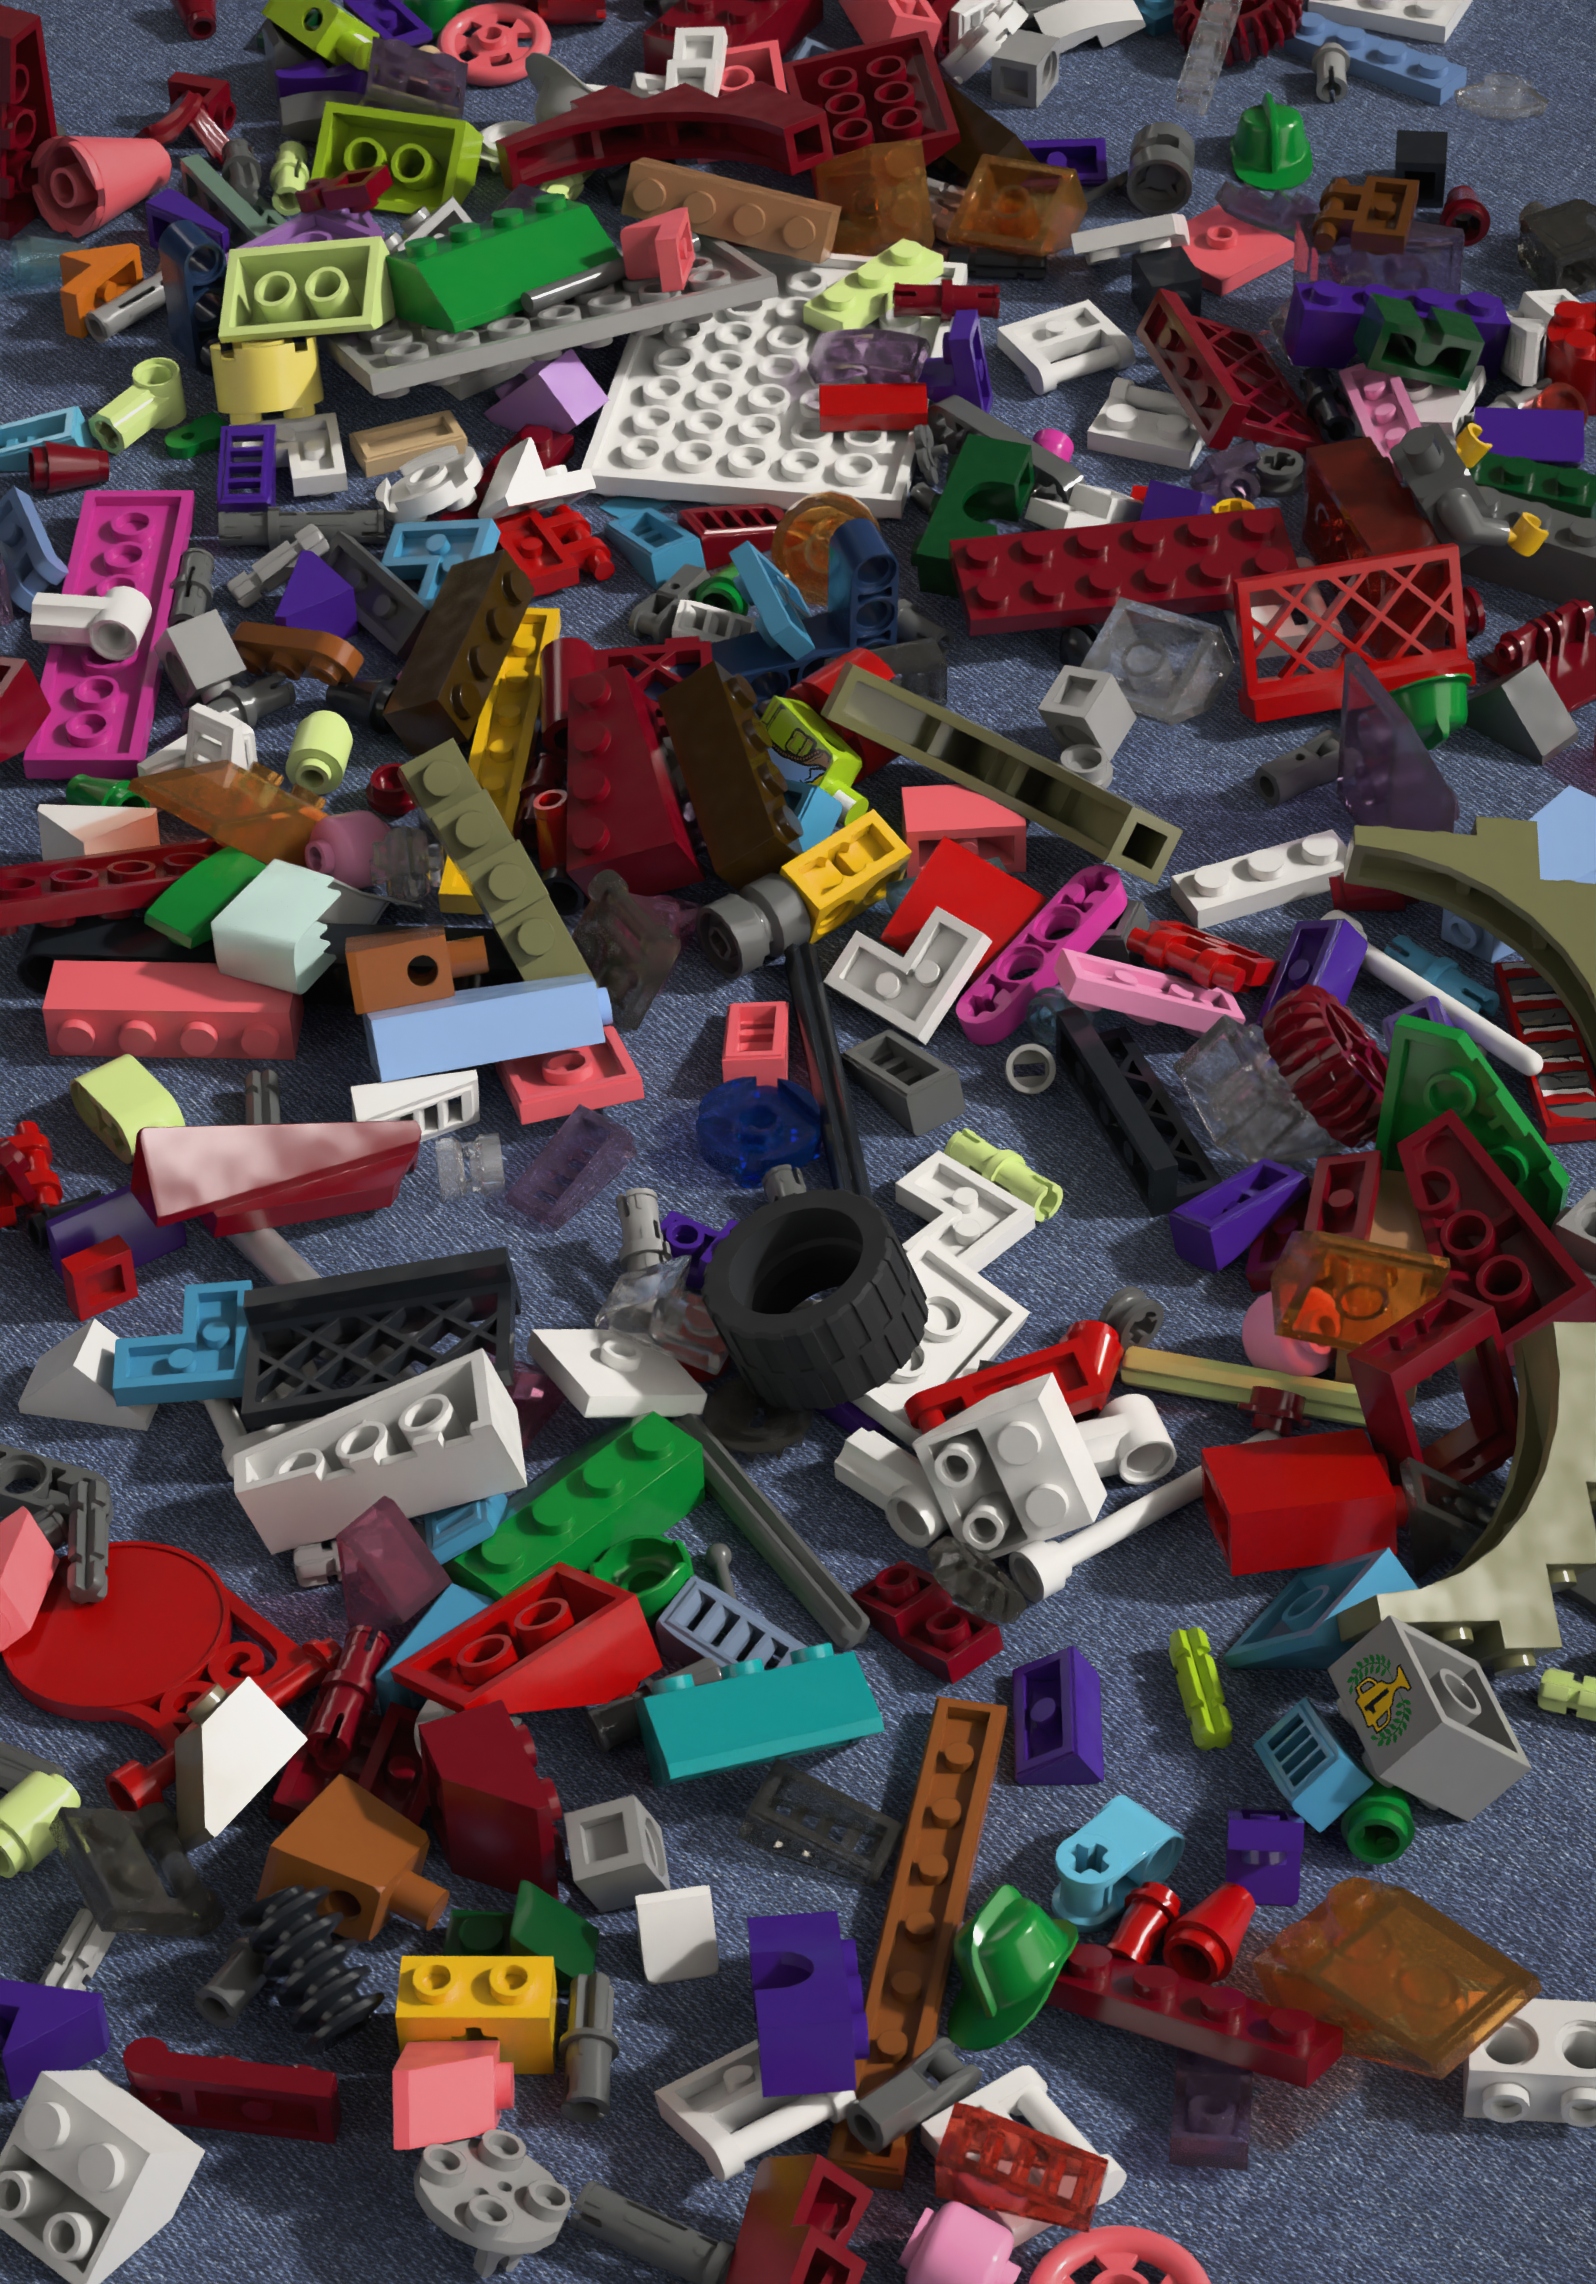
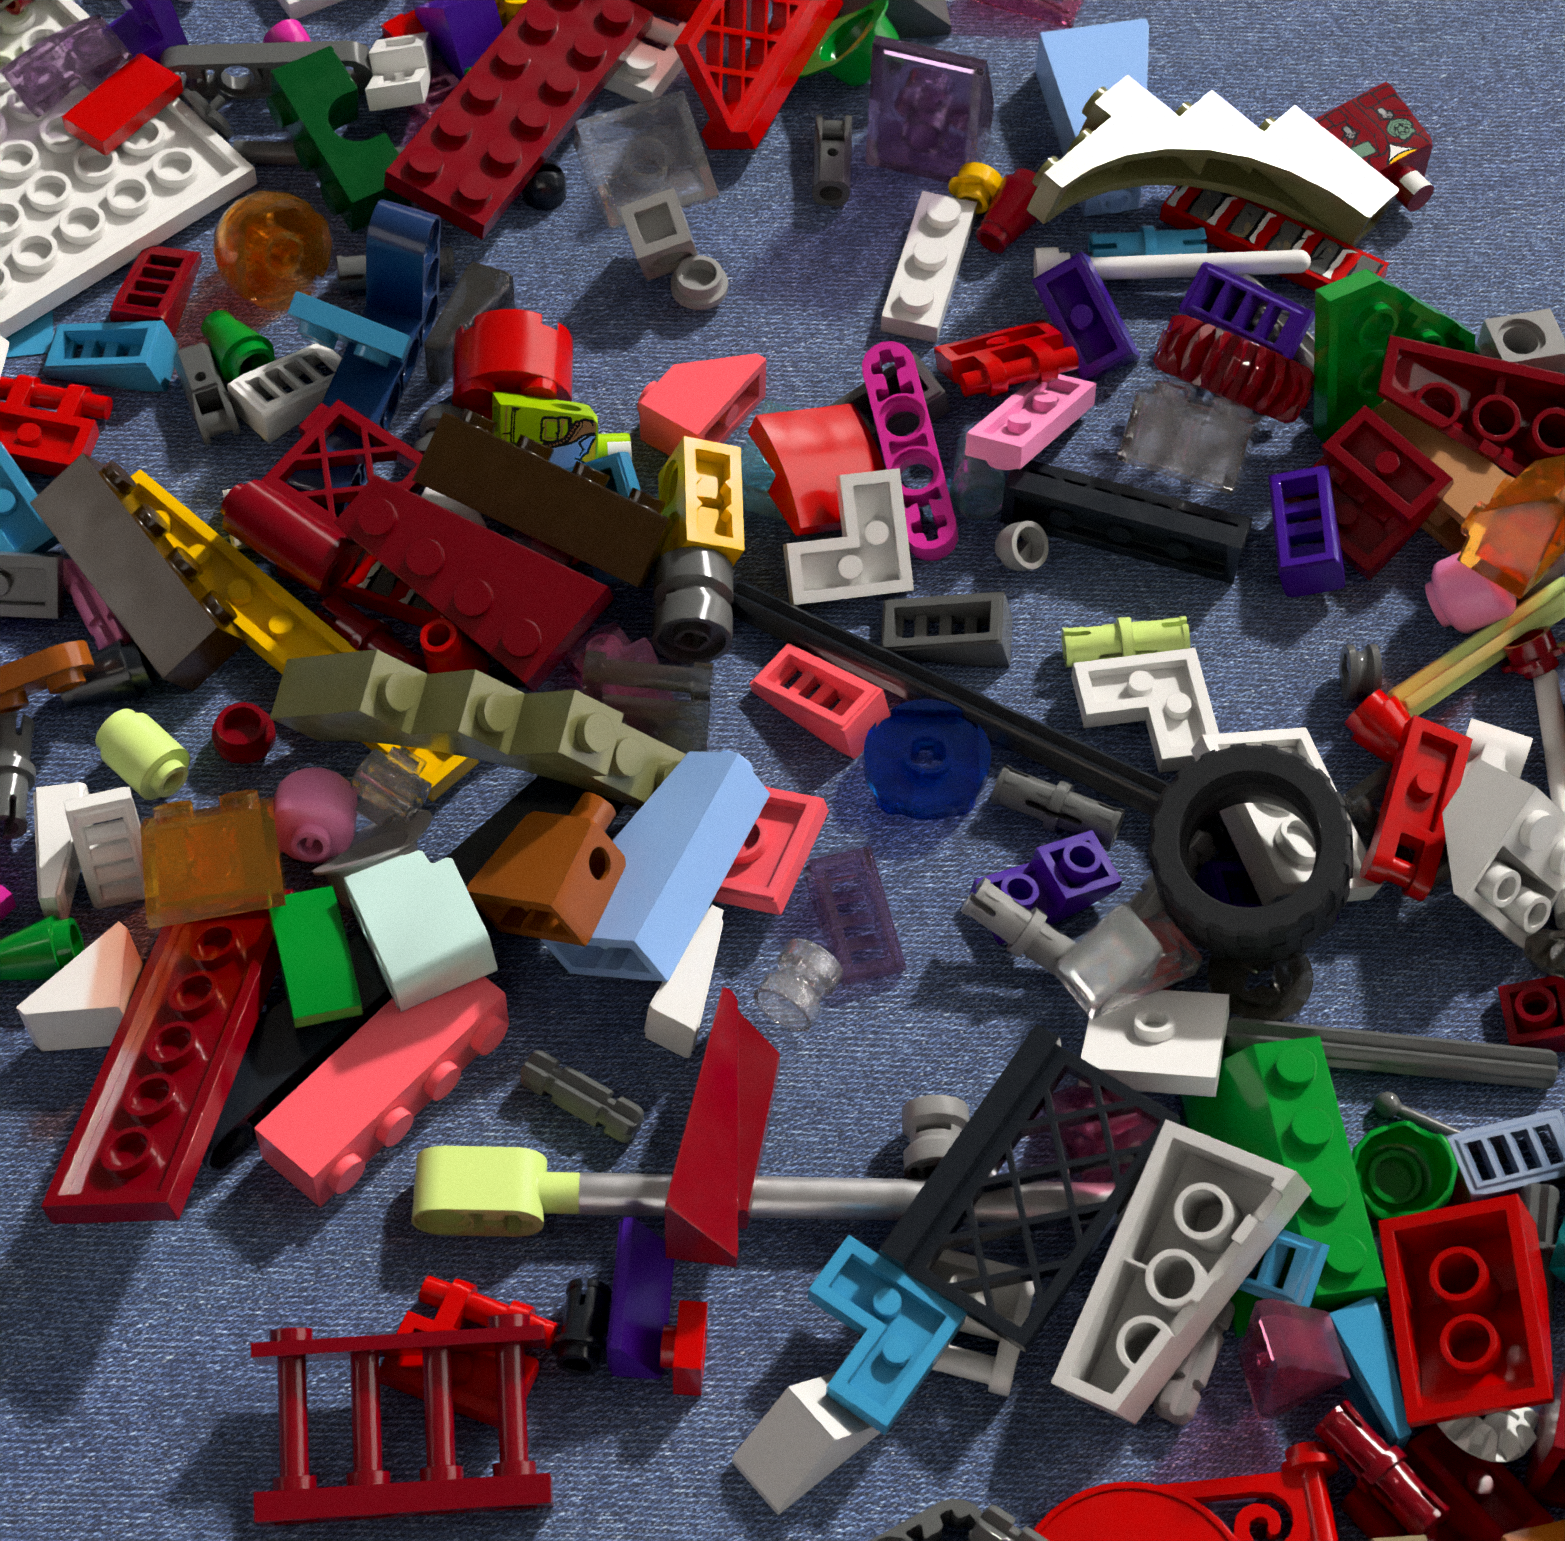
camera: 55 degrees left, 15 degrees up
(894, 1483) = (1433, 931): white piece -> none
(1003, 772) = (723, 324): olive arch -> none

